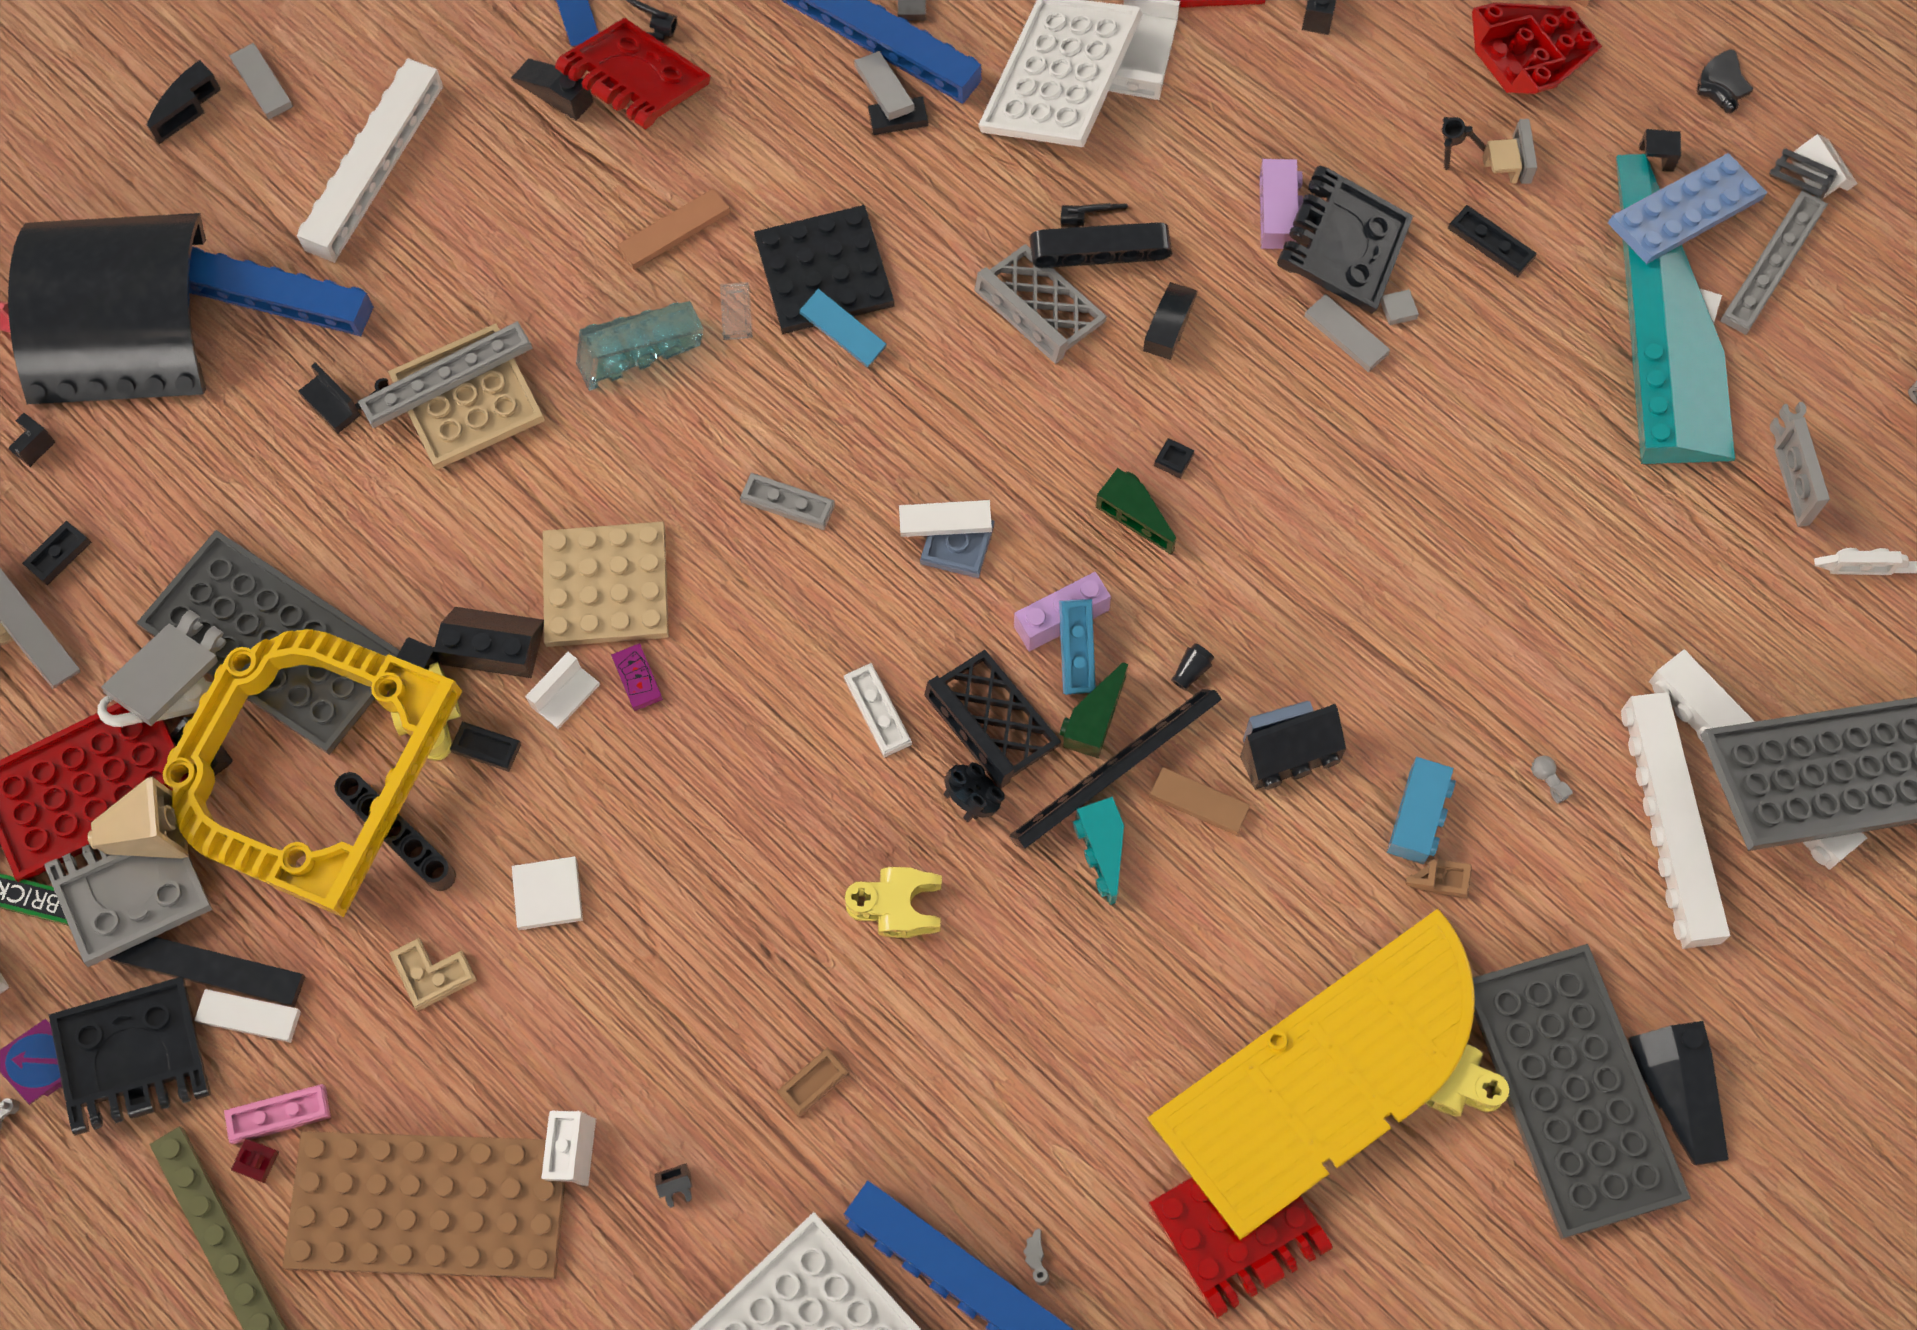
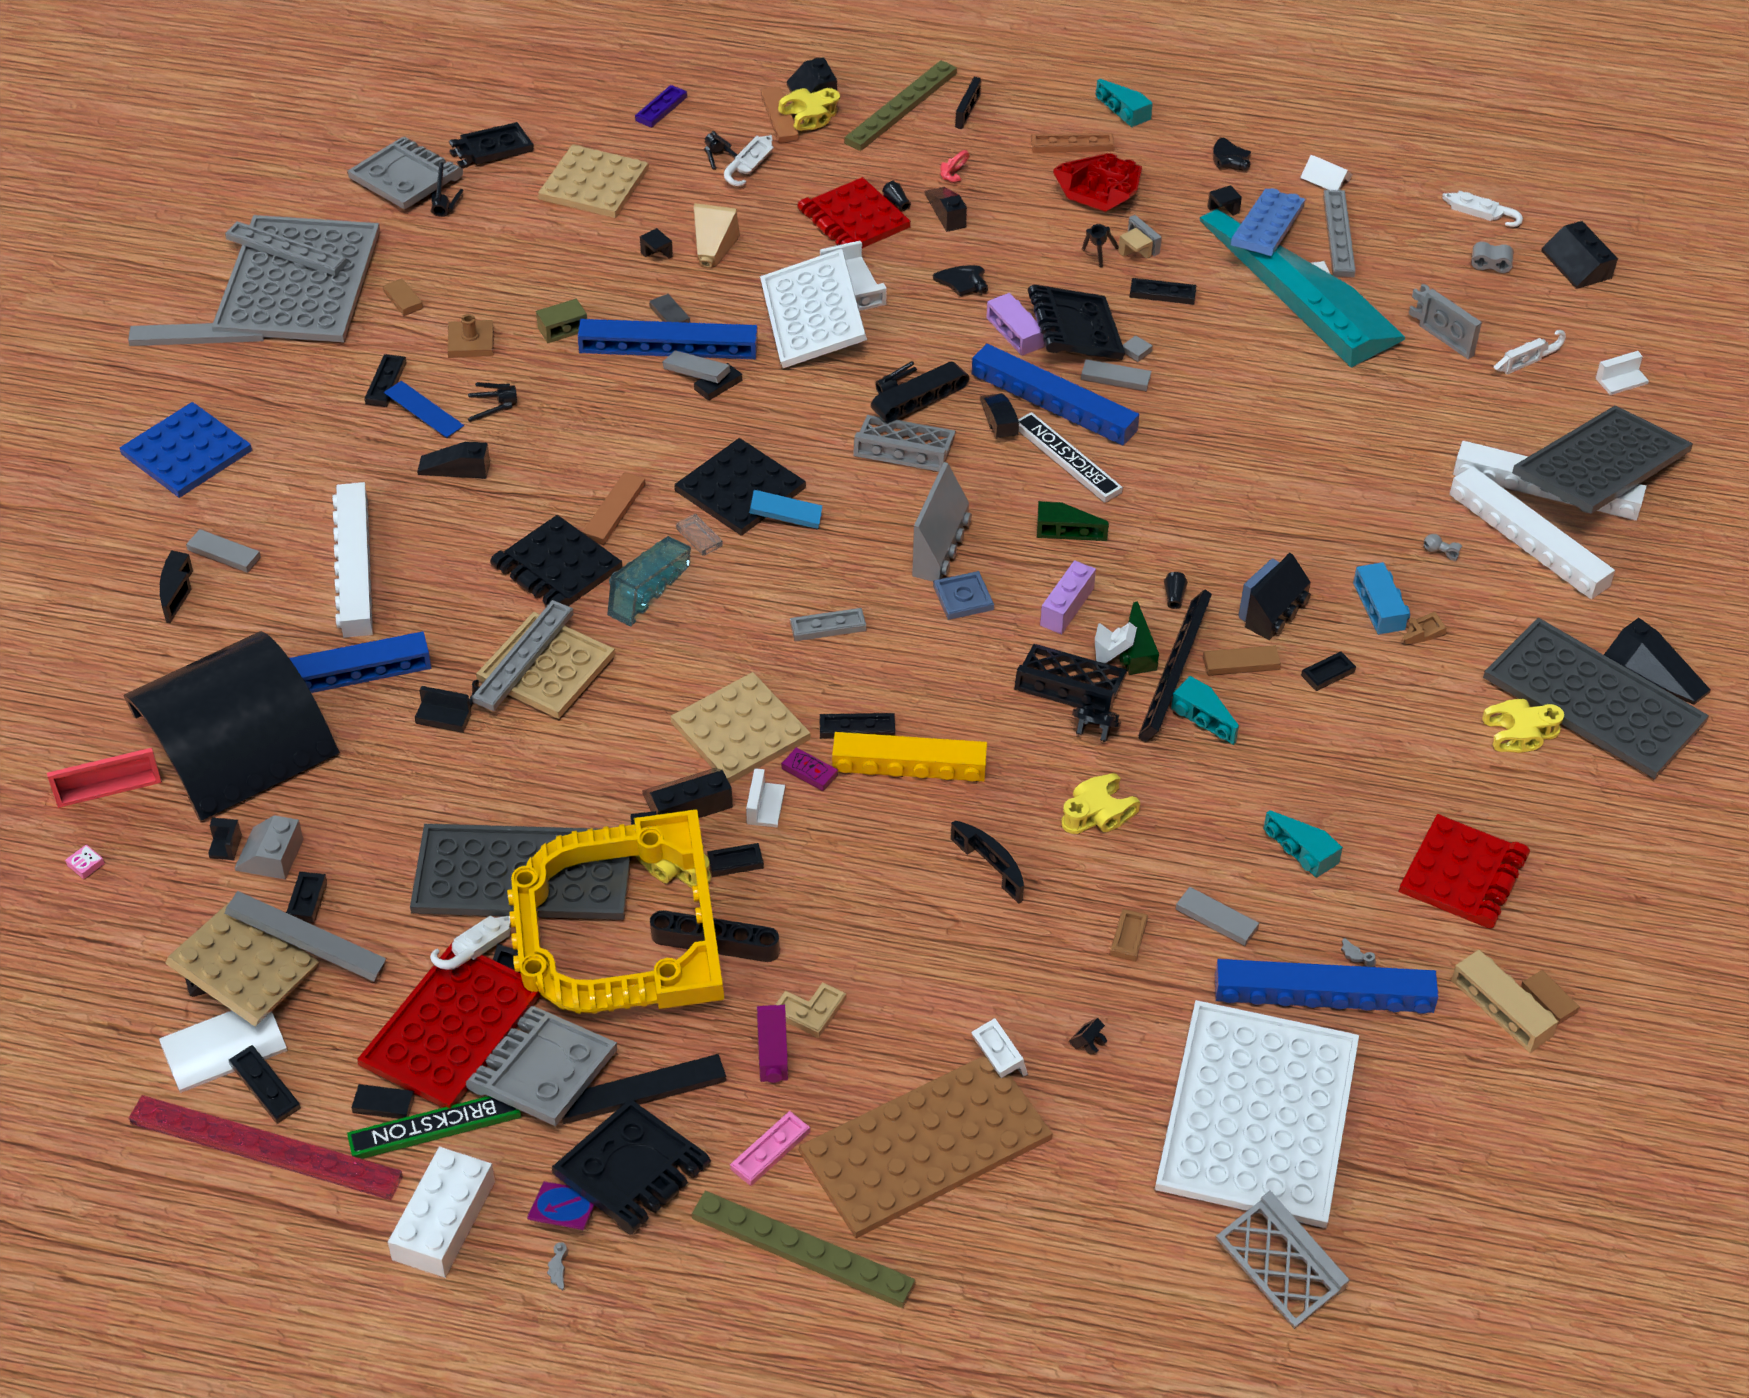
camera: 35 degrees left, 20 degrees down
(64, 477) = (271, 848): none -> light grey slope
(140, 825) = (529, 1012): tan slope -> none
(165, 669) = (464, 915): light grey tile -> none
(247, 1015) = (697, 1101): white tile -> none
(254, 1160) = (778, 1184): dark red tile -> none
(340, 1008) = (772, 1043): none -> magenta slope
(547, 893) = (853, 921): white tile -> none
(569, 269) = (557, 562): none -> black hinge
(635, 67) = (514, 424): red hinge -> none
(725, 649) = (857, 723): none -> black tile
(736, 940) = (971, 838): none -> black slope
(744, 724) = (909, 756): none -> yellow brick
(877, 710) = (991, 710): white tile -> none
(922, 1116) = (1217, 916): none -> light grey tile
(945, 518) = (947, 581): white tile -> none
(980, 444) = (940, 527): none -> light grey slope
(1057, 704) = (1111, 644): none -> white slope
(1077, 646) = (1093, 602): dark azure tile -> none
(1086, 1092) = (1307, 844): none -> teal slope
(1174, 458) = (1065, 487): black tile -> none
(1207, 419) = (1069, 458): none -> tile
(1252, 326) = (1055, 394): none -> blue brick
(1268, 108) = (963, 279): none -> black arm
(1288, 871) = (1328, 671): none -> black tile
(1326, 1077) = (1448, 762): yellow door -> none
(1788, 154) = (1332, 174): black tile -> none

